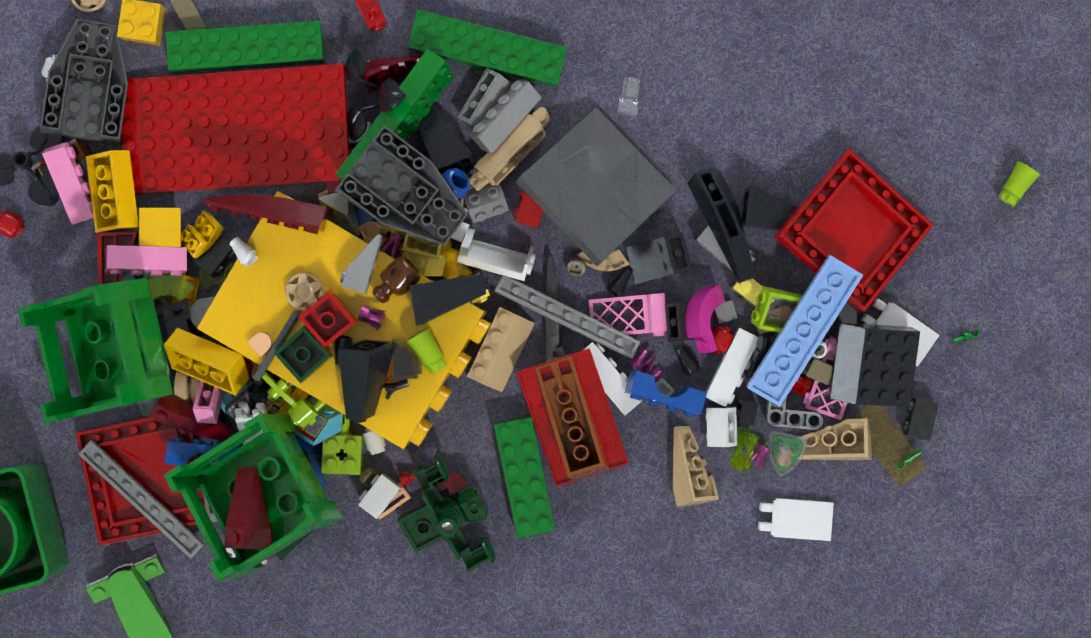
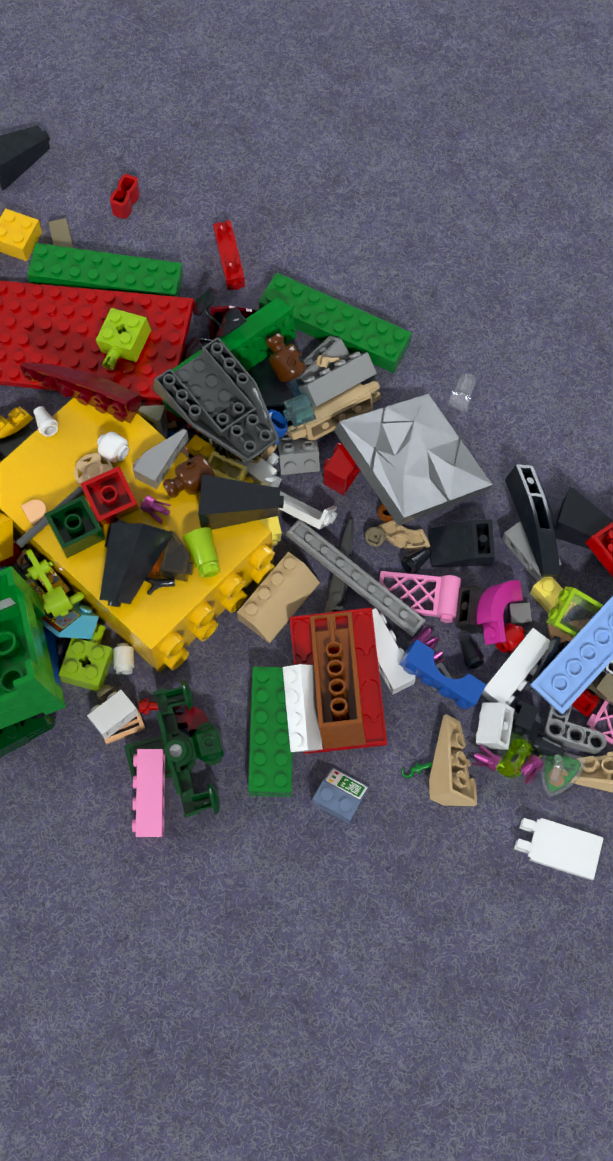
camera: 15 degrees right, 20 degrees down
(284, 137) = (122, 336): none -> lime brick
(315, 265) = (113, 447): none -> white head
(432, 558) = (149, 793): none -> bright pink brick
(450, 113) = (285, 360): none -> reddish brown piece
(476, 164) = (299, 410): none -> clear light blue brick
(487, 102) = (323, 361): none -> tan hand
(547, 455) = (302, 708): none -> white brick
(598, 518) = (340, 795): none -> sand blue slope
(660, 478) = (417, 768): none -> green hand
(724, 459) = (491, 762): none -> flat silver piece
(772, 434) = (546, 746): none -> black cone

